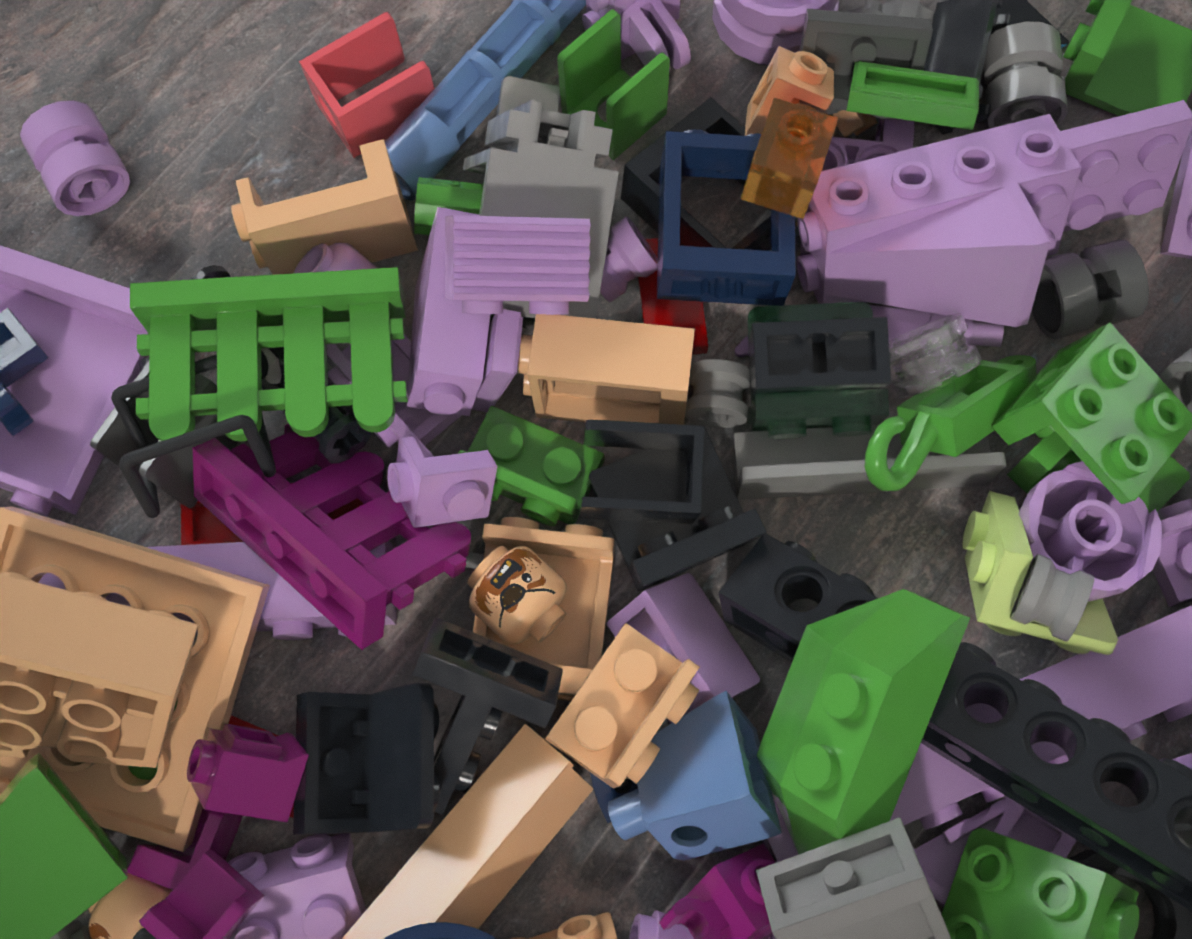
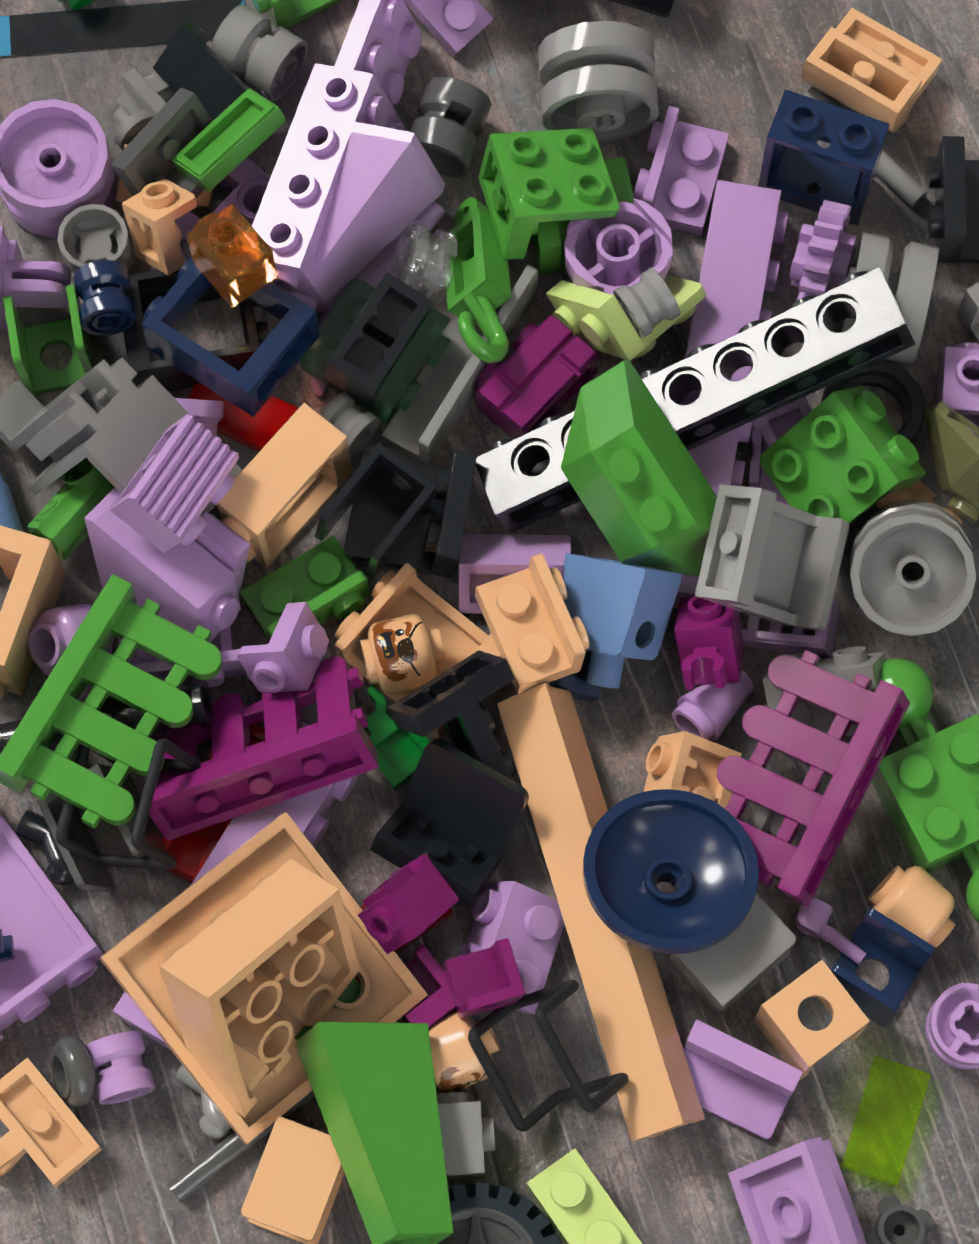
camera: 60 degrees left, 0 degrees up
(415, 631) = (396, 748): none -> green plate
(683, 89) = (105, 303): none -> dark blue wheel
(728, 63) = (95, 235): none -> light grey wheel
(897, 540) = (536, 378): none -> magenta brick

